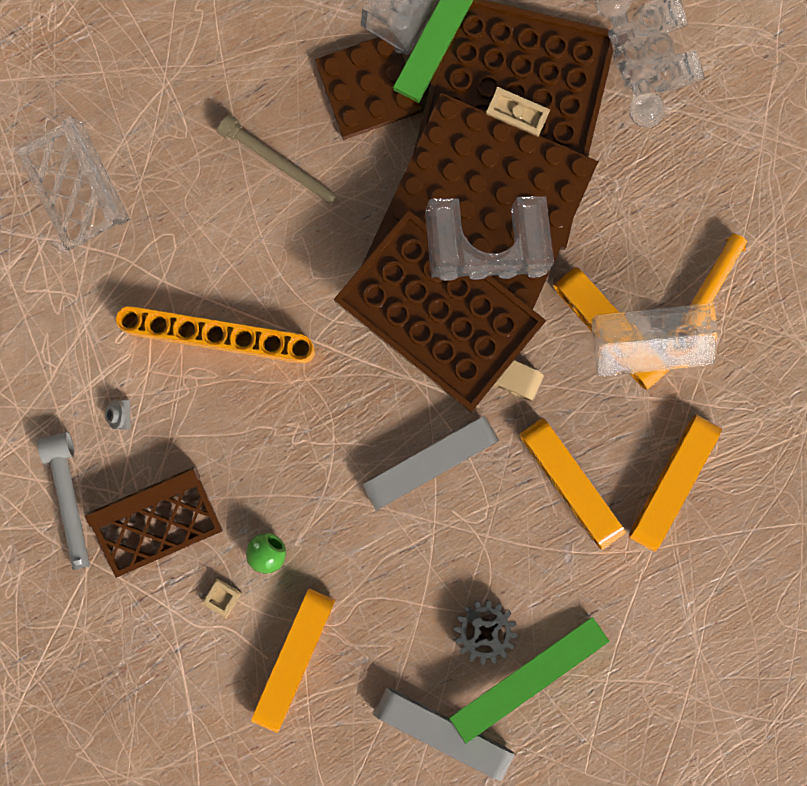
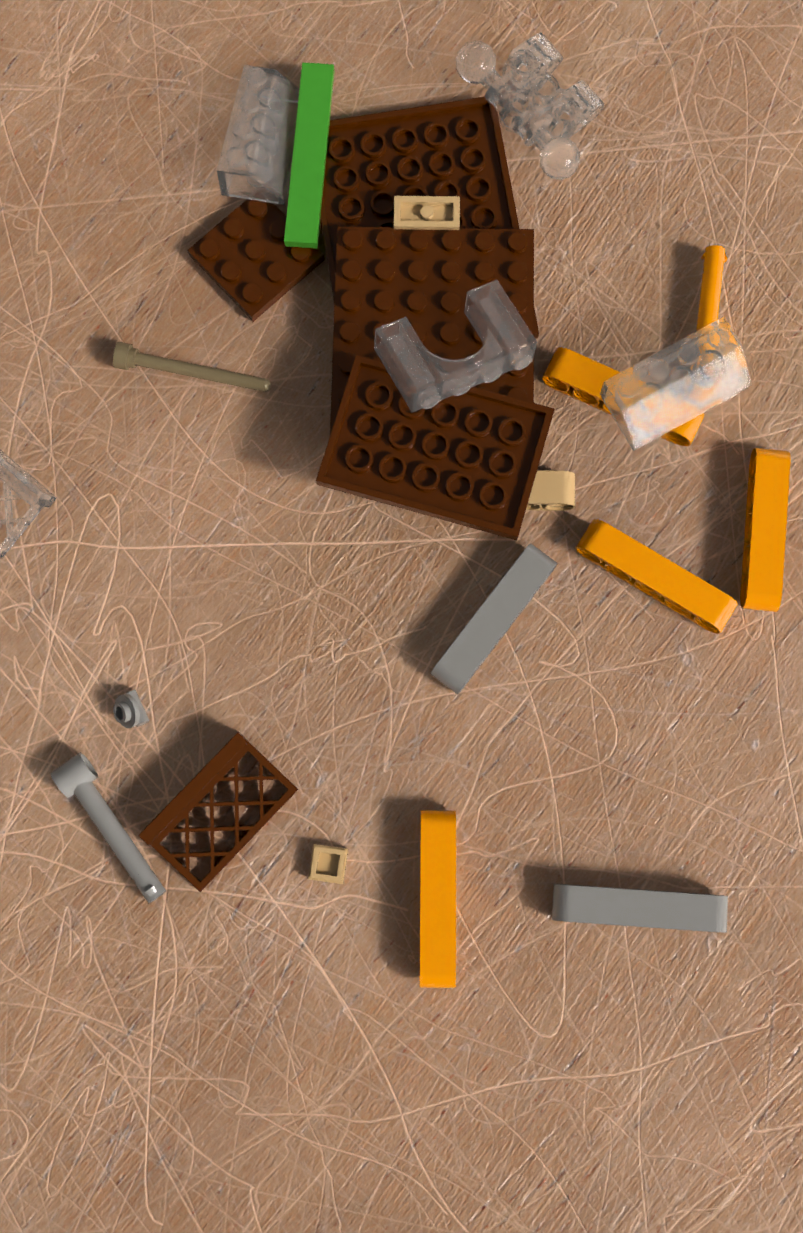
camera: 20 degrees left, 5 degrees down
(203, 328) = (186, 574): light orange beam -> none
(266, 553) = (357, 792): bright green piece -> none
(474, 641) = (650, 783): dark grey gear -> none
(528, 680) = (705, 808): bright green tile -> none

